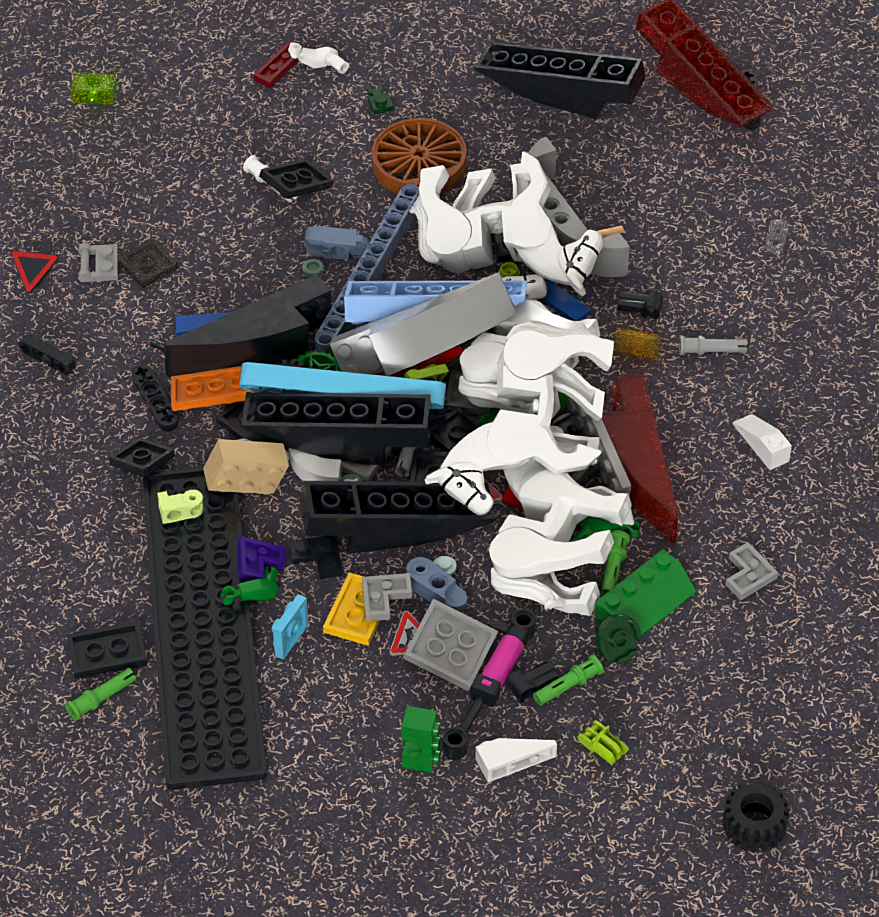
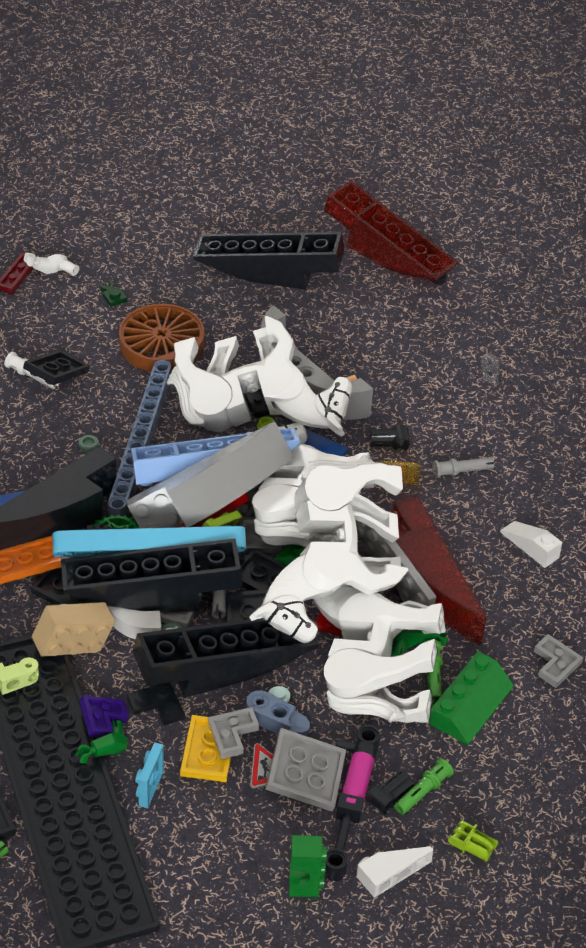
camera: 15 degrees left, 5 degrees down
(334, 242) = (104, 418): sand blue piece -> none
(617, 638) = (459, 739): dark green tile -> none

